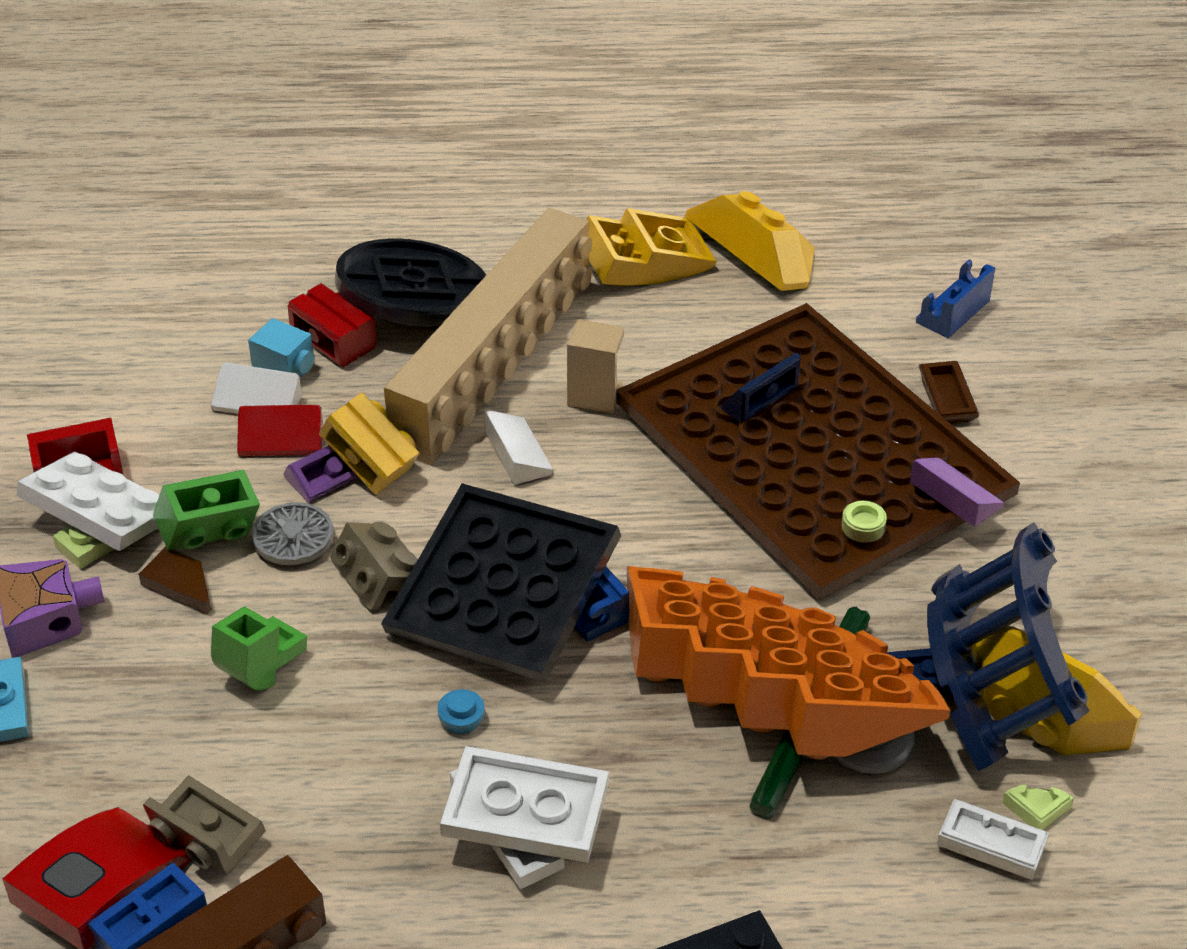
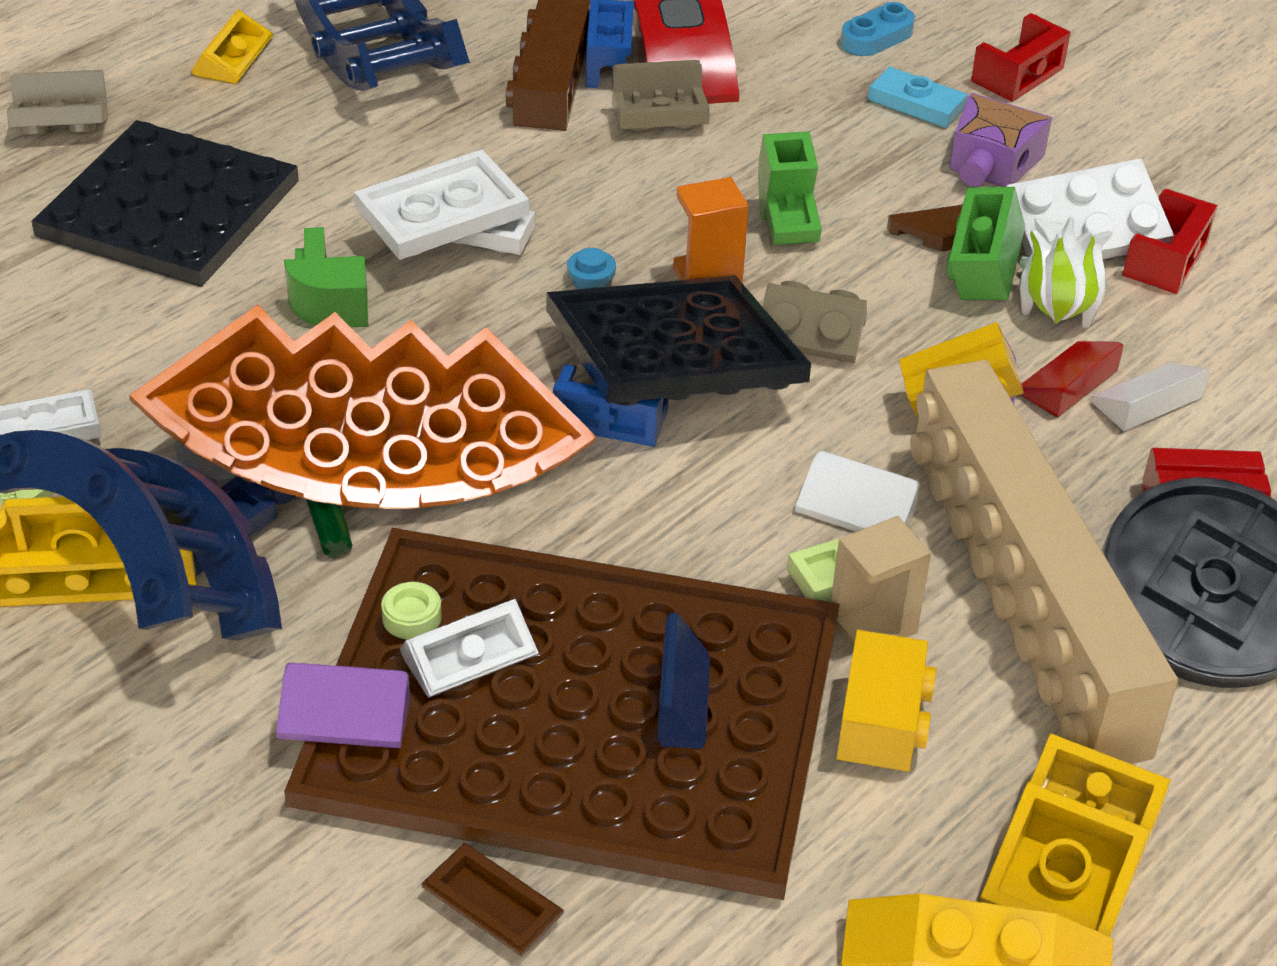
camera: 135 degrees right, 0 degrees up
(194, 454) = (1064, 273): none -> hair
(282, 348) = (1195, 422): medium azure brick -> none
(292, 533) = (918, 307): light grey wheel -> none
(374, 636) = (715, 230): none -> orange panel
(594, 417) = (814, 569): none -> yellowish green plate
(662, 334) = (884, 701): none -> yellow brick
(680, 820) = (326, 285): none -> bright green brick
(850, 483) = (469, 648): none -> white slope

